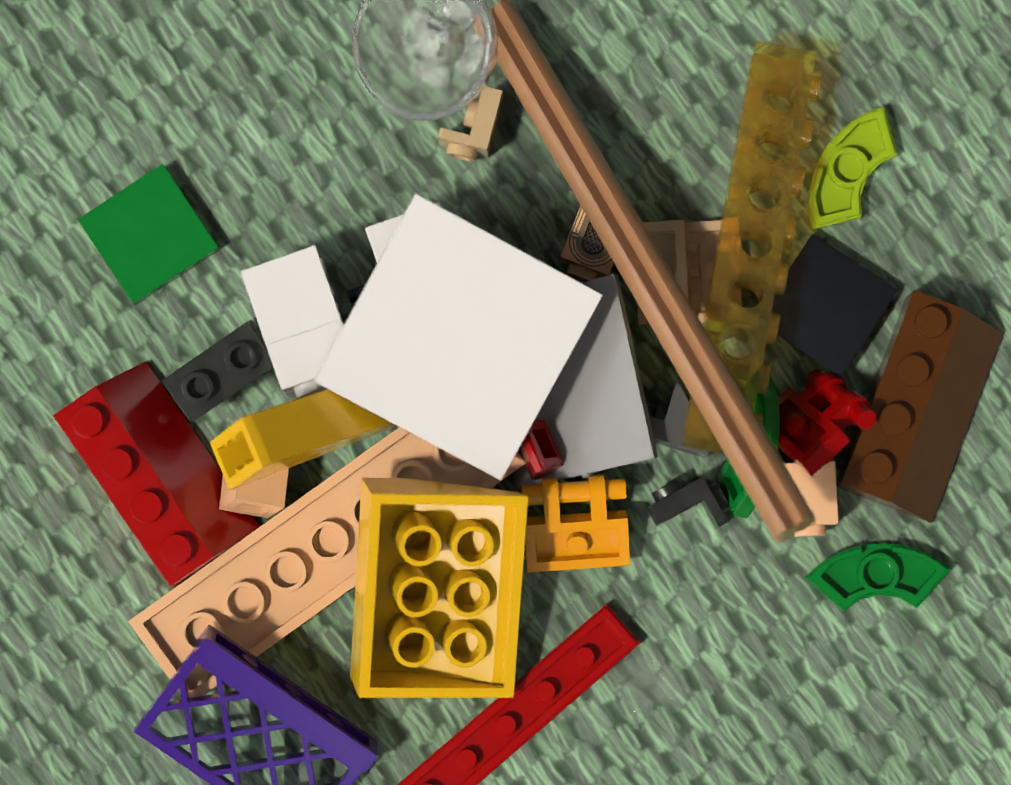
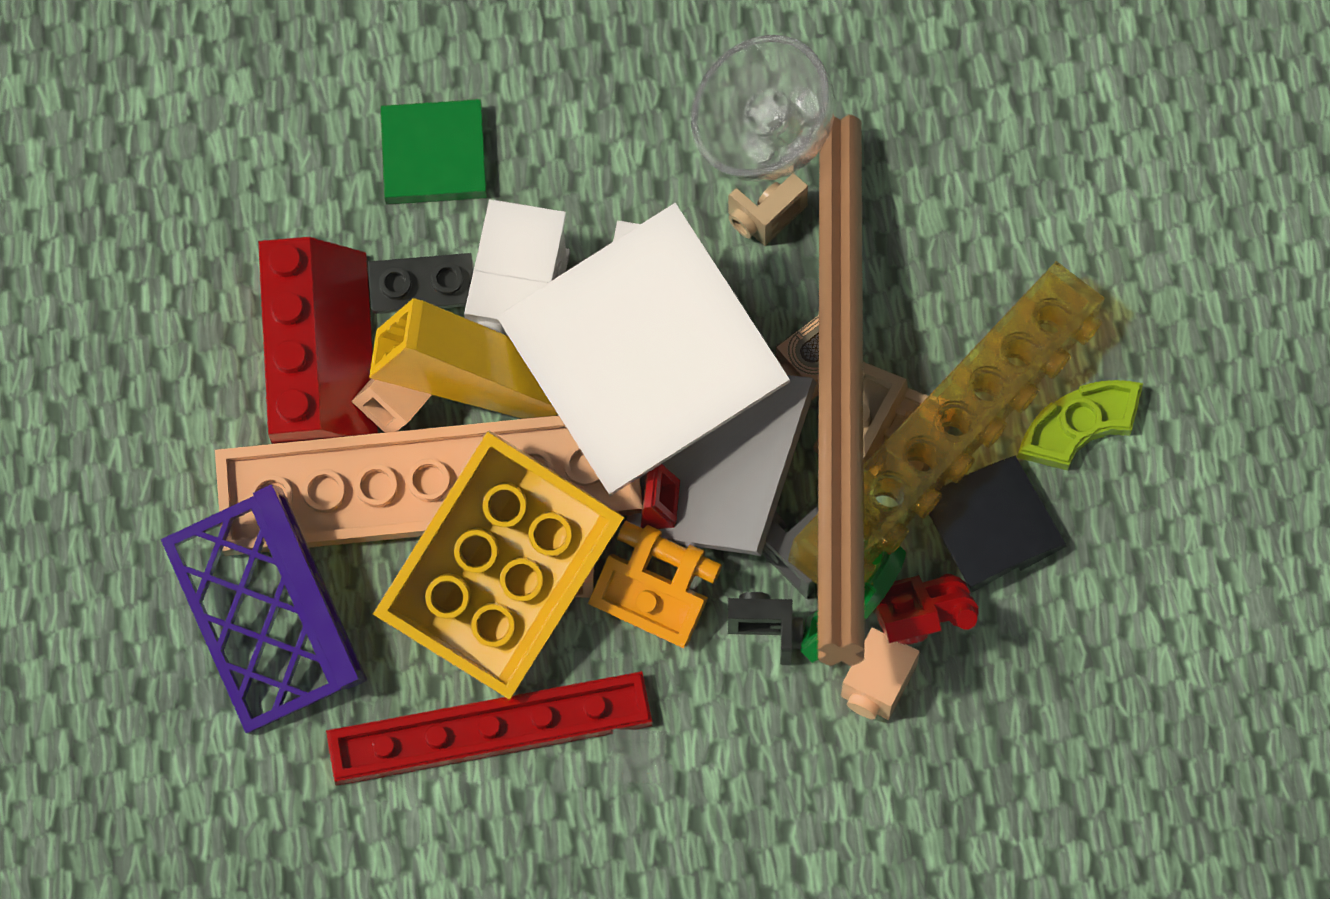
camera: 30 degrees right, 15 degrees down
(875, 571) = (905, 780): green tile -> none
(920, 406) = (1027, 654): reddish brown slope -> none

